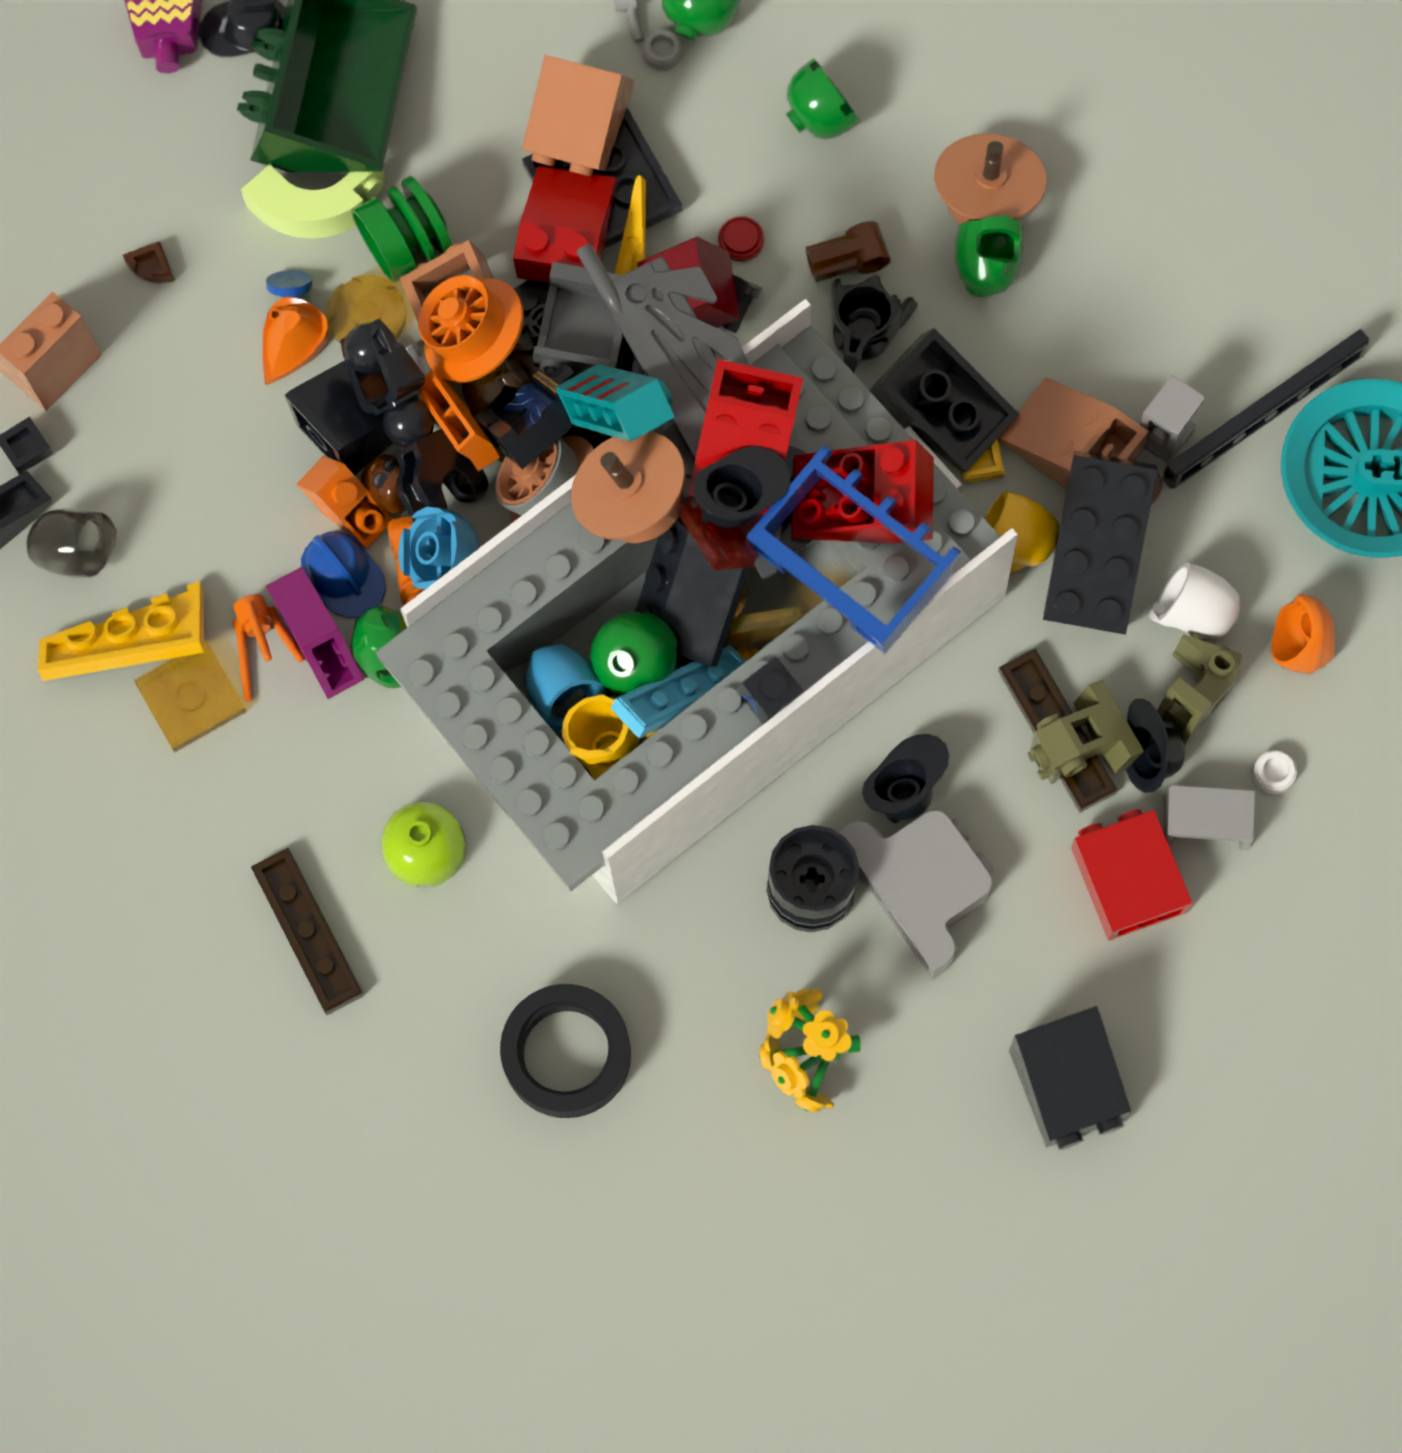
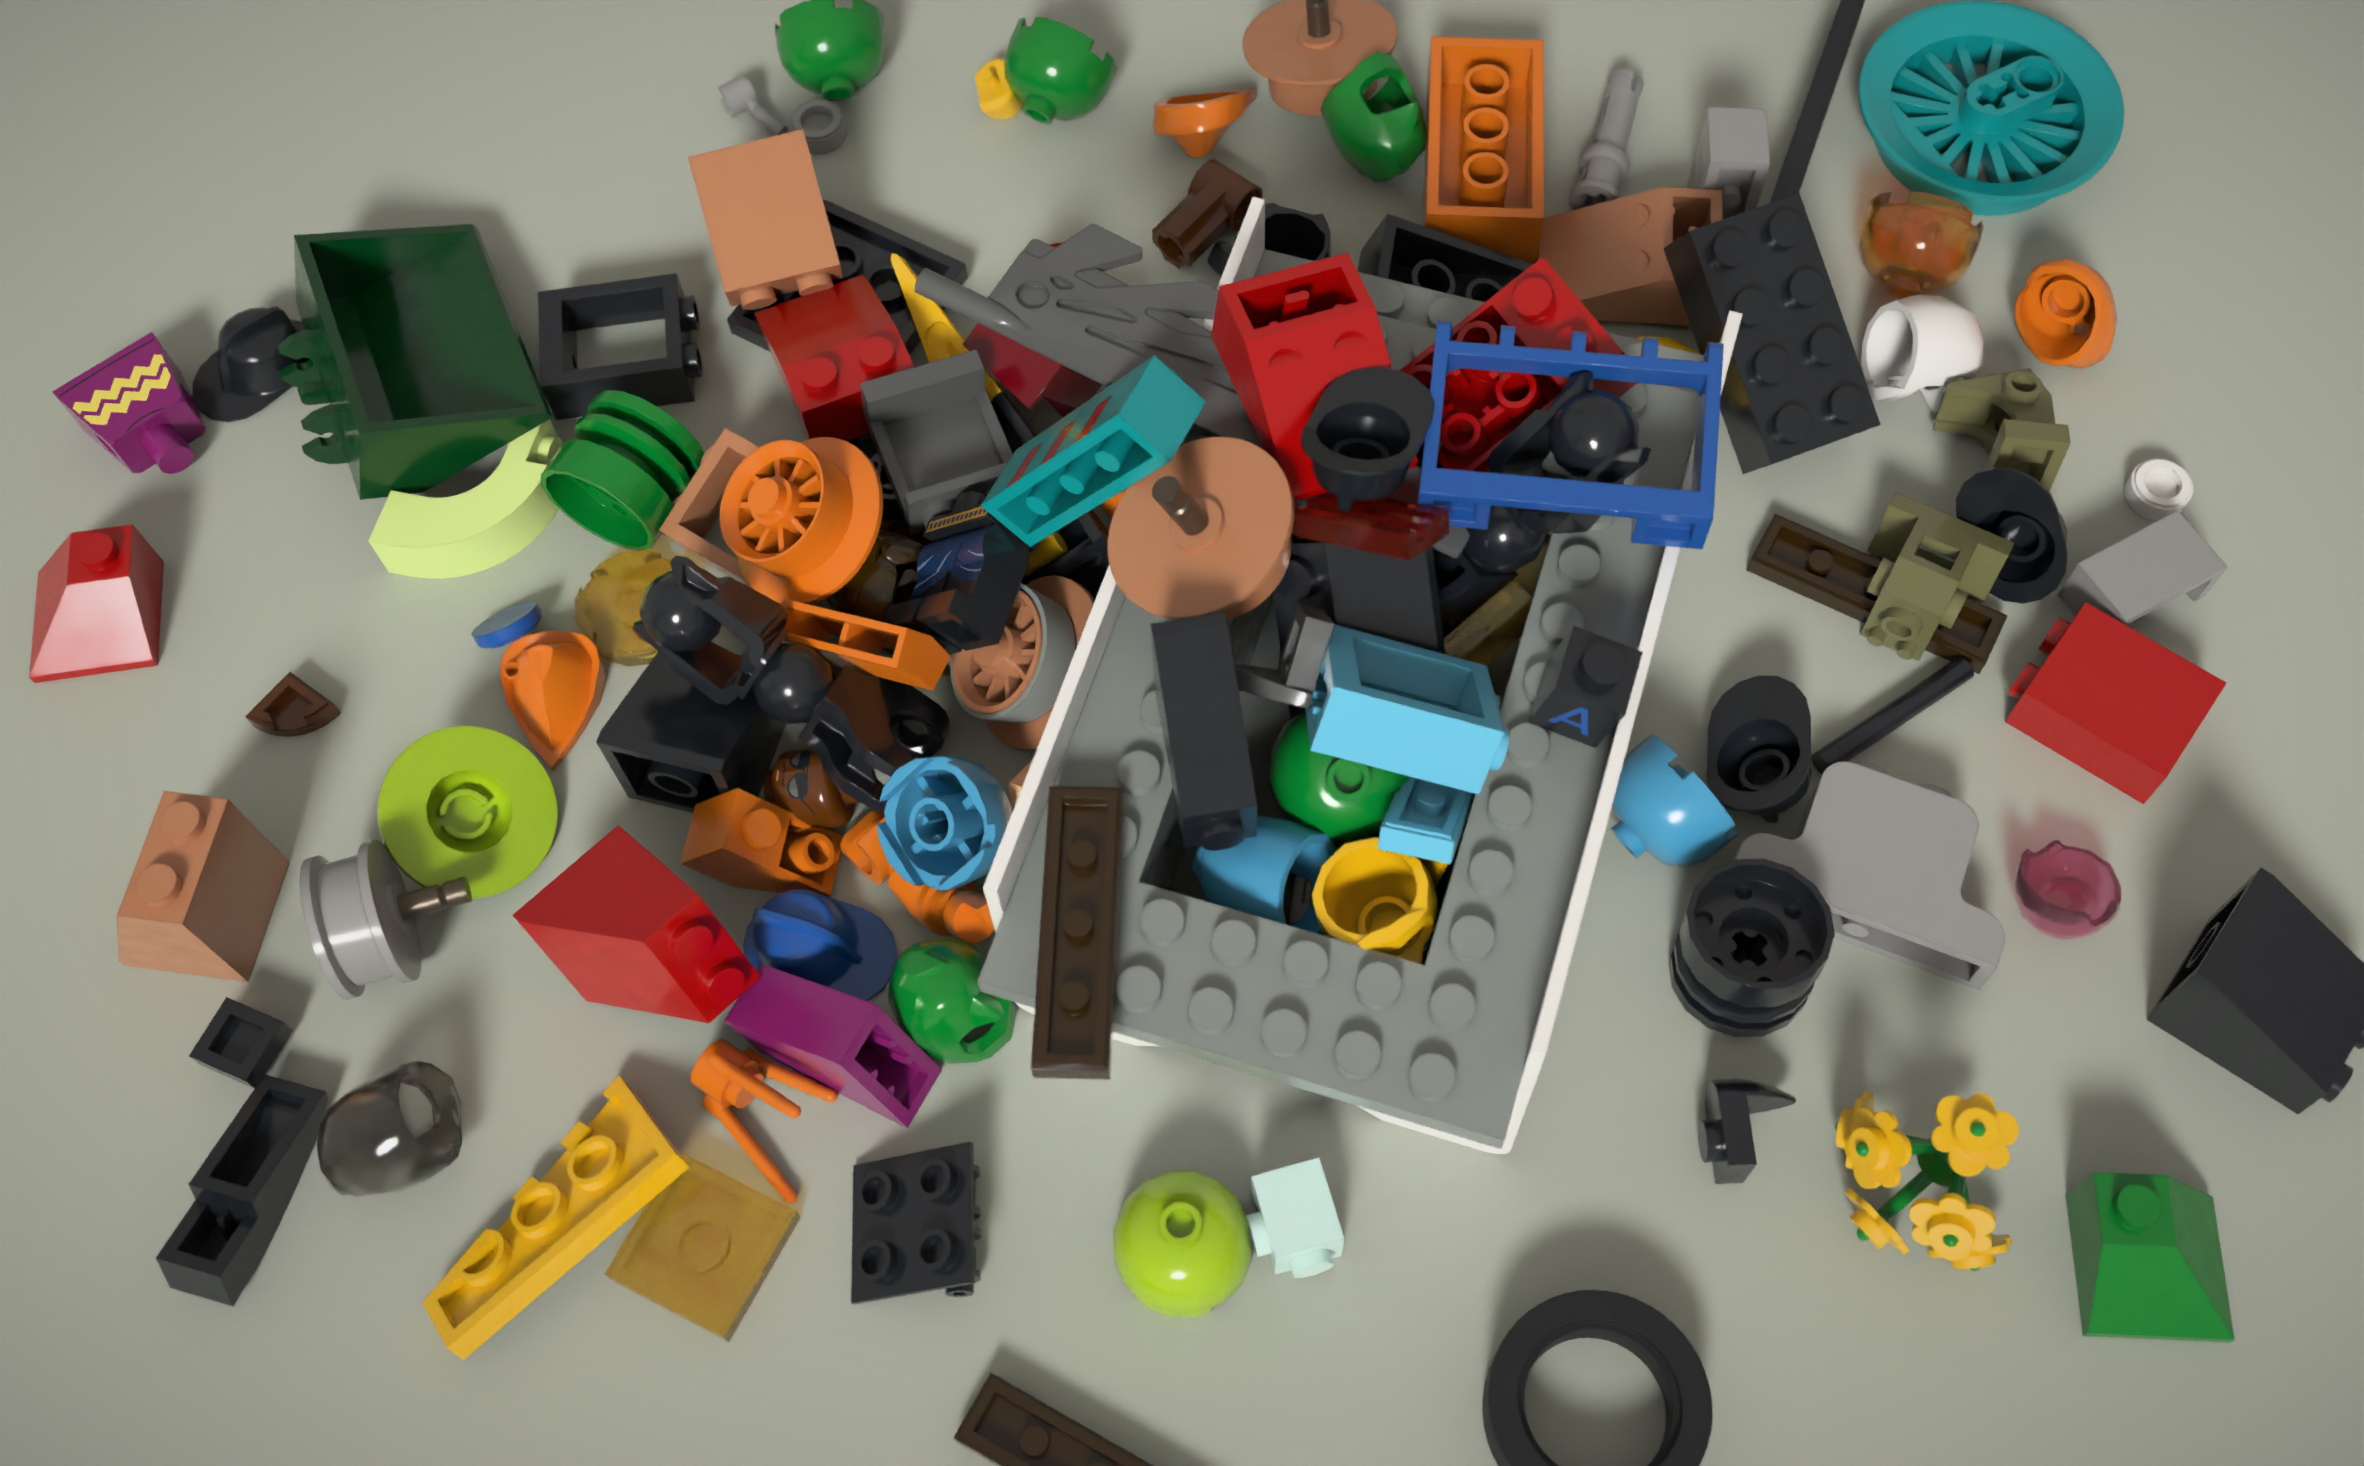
camera: 35 degrees left, 10 degrees down
(79, 137) = (97, 606): none -> slope
(119, 418) = (366, 918): none -> light grey wheel
(204, 387) = (467, 808): none -> lime hat
(247, 512) = (636, 935): none -> red slope
(298, 751) = (915, 1225): none -> black hinge
(415, 122) = (610, 304): none -> black window
(436, 658) = (1078, 934): none -> dark brown tile
(484, 868) = (1295, 1219): none -> light aqua brick
(556, 596) = (1204, 731): none -> black slope
(625, 592) = (1299, 664): none -> dark grey tile
(656, 660) = (1406, 711): none -> medium azure window
(731, 965) = (1727, 1132): none -> black plate
(778, 89) = (994, 92): none -> yellow piece
(831, 777) = (1667, 809): none -> dark azure cylinder
(856, 553) = (1591, 439): none -> black piece
(892, 182) = (1200, 119): none -> orange piece
(900, 1163) = (2147, 1259): none -> green slope
(1008, 805) = (1894, 714): none -> black bar
(1012, 956) = (2066, 891): none -> clear pink hair
(1040, 311) = (1486, 142): none -> orange brick
(1114, 363) = (1605, 161): none -> light grey pin
(1247, 537) = (1917, 243): none -> clear orange cylinder

